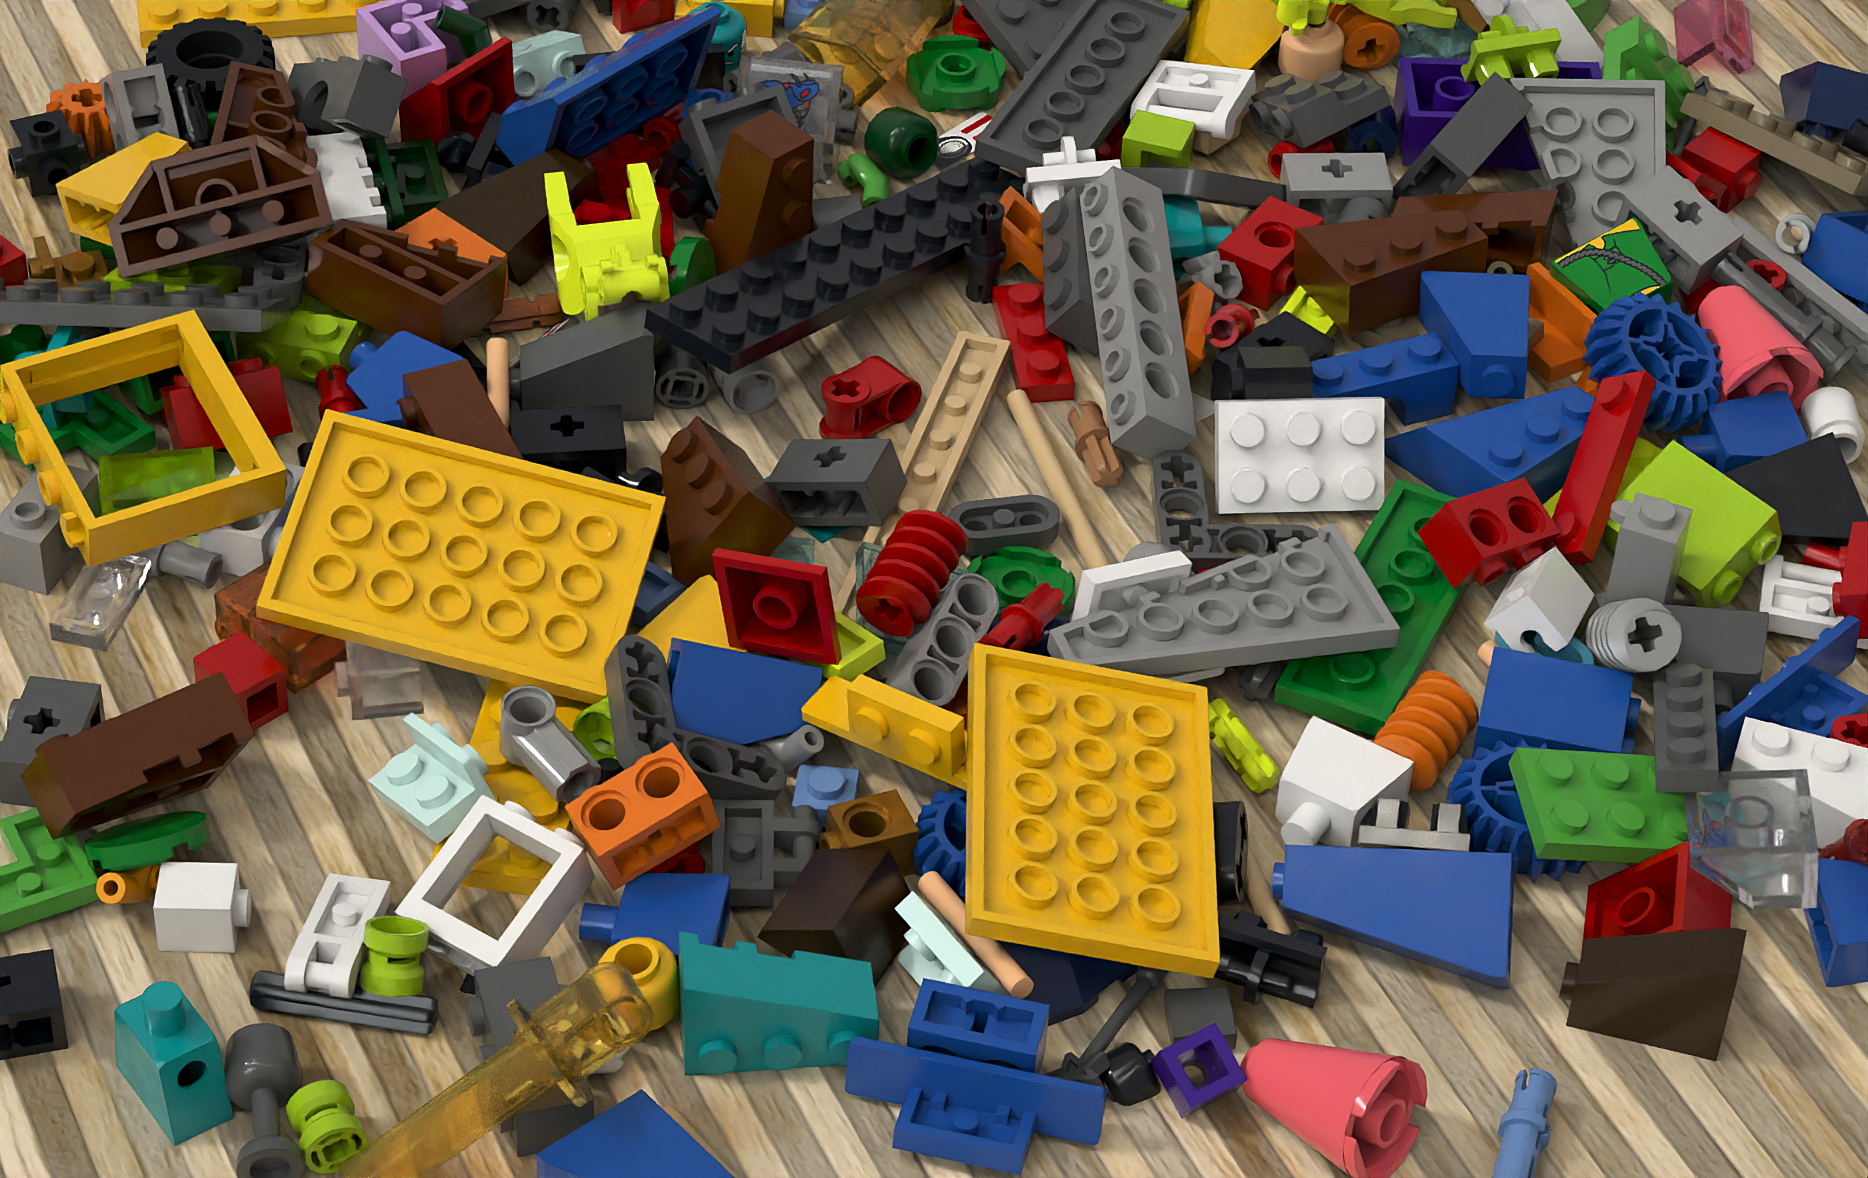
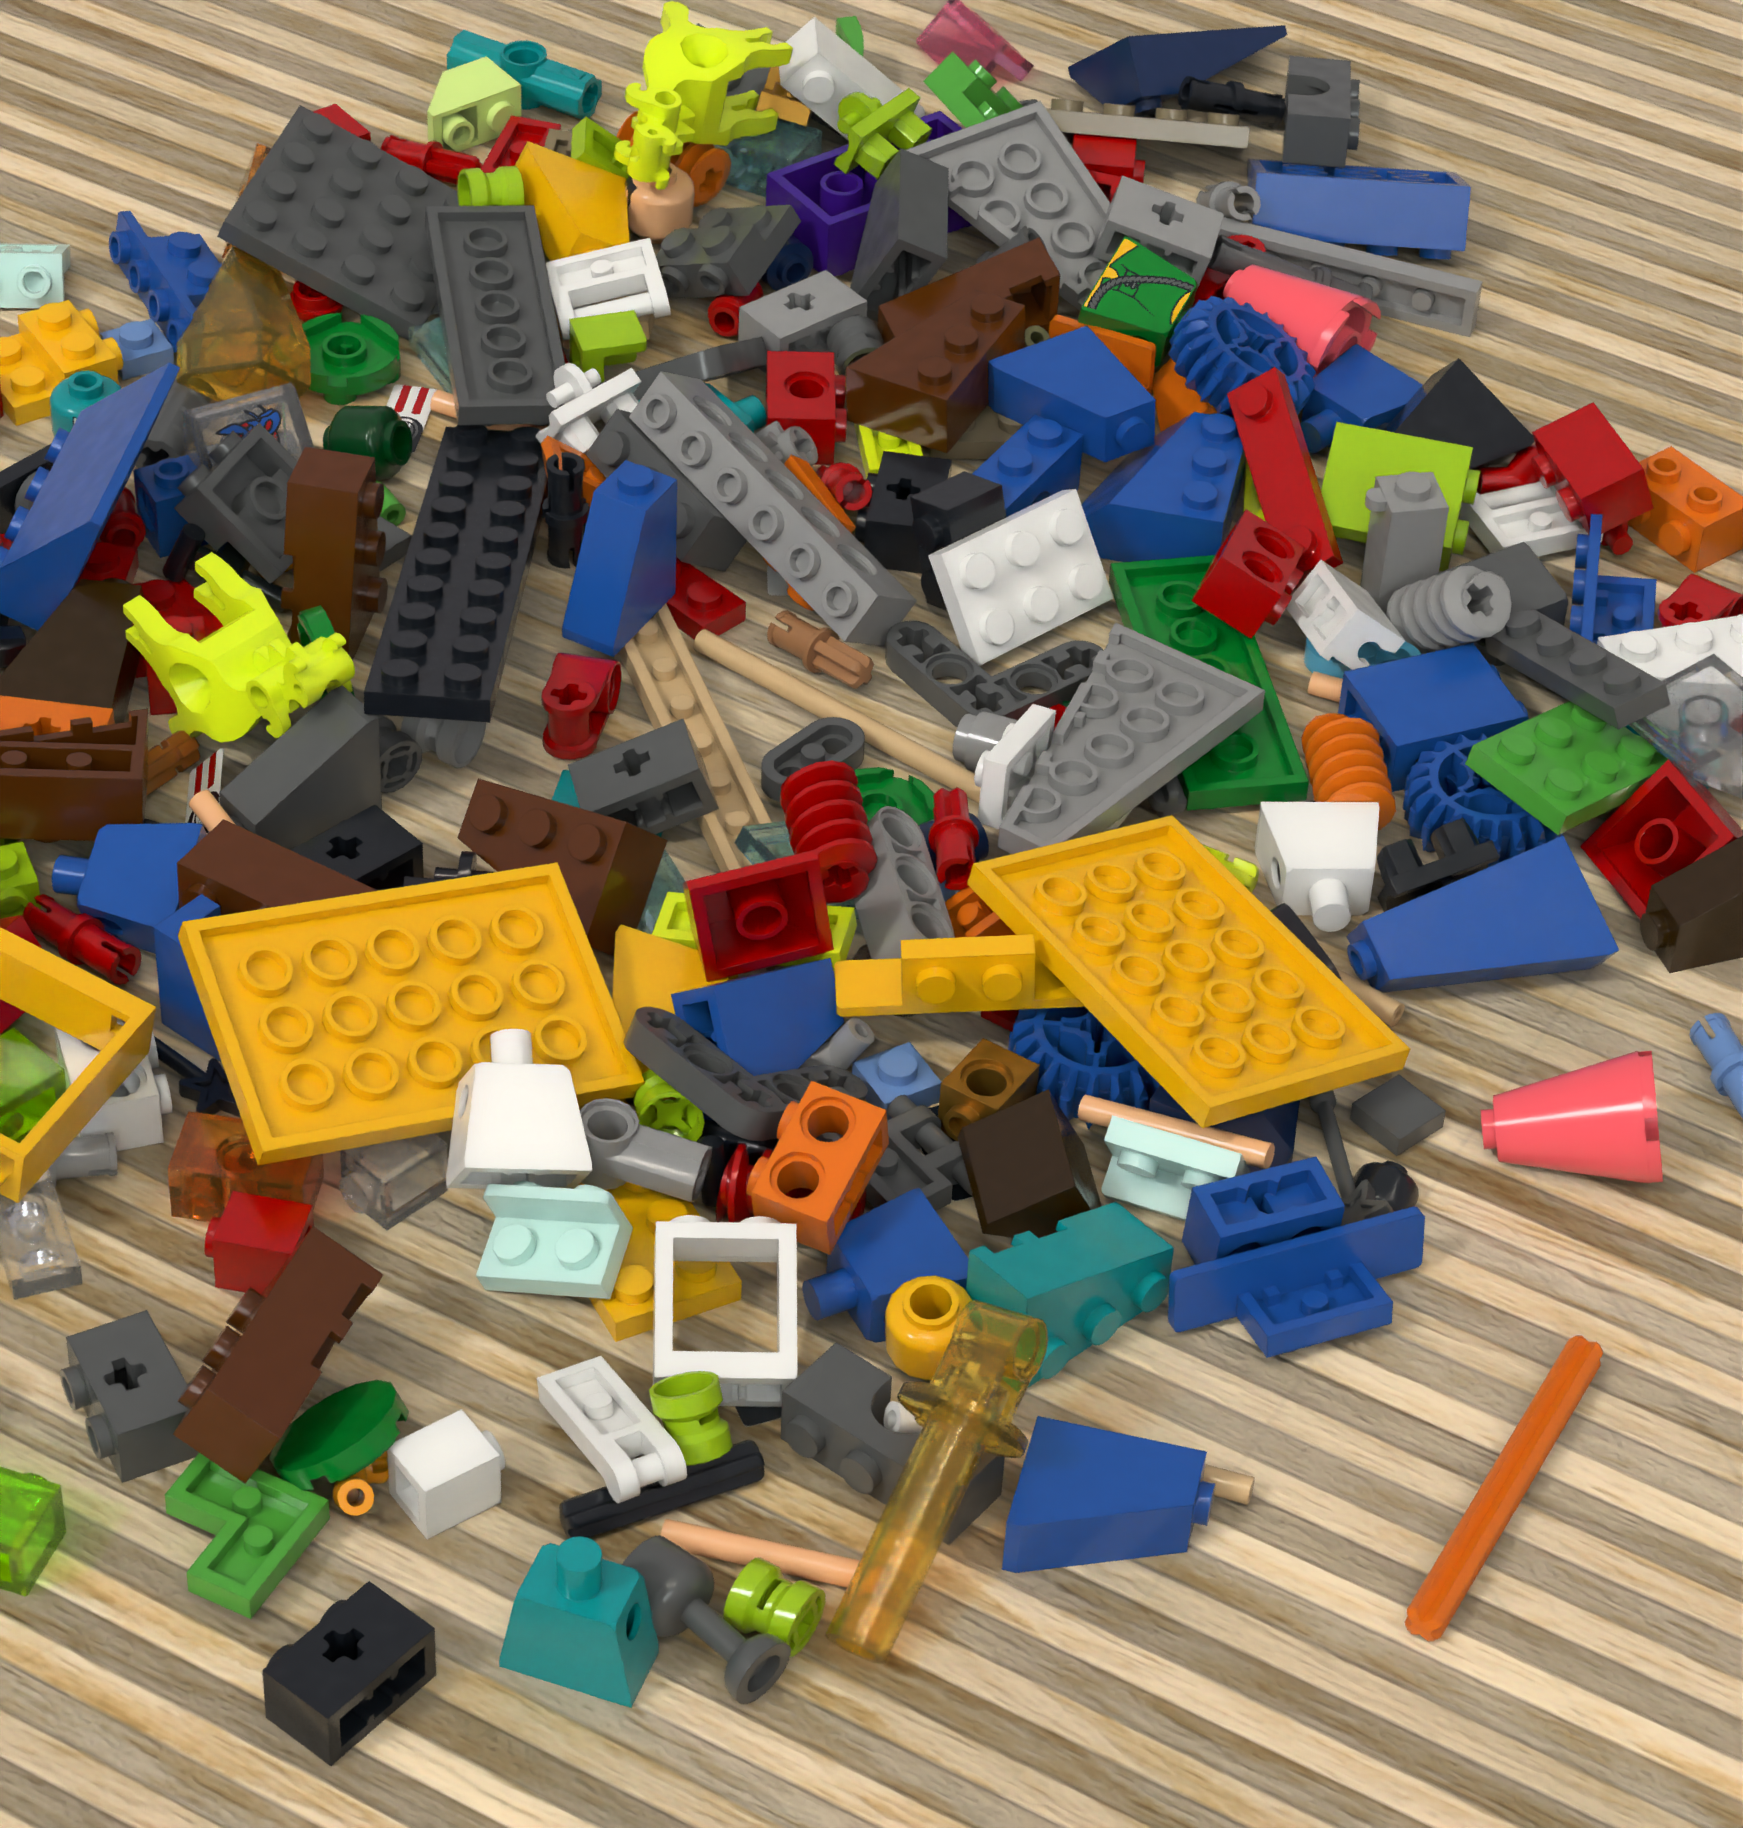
camera: 35 degrees left, 0 degrees up
(357, 1074) = (743, 1549): none -> light nougat bar
(459, 673) = (516, 1121): none -> white torso
(969, 302) = (624, 559): none -> blue slope
(1210, 1054) = (1456, 1155): dark purple plate -> none
(1270, 960) = (1430, 1027): black hips -> none
(1836, 412) = (1406, 352): white brick -> none

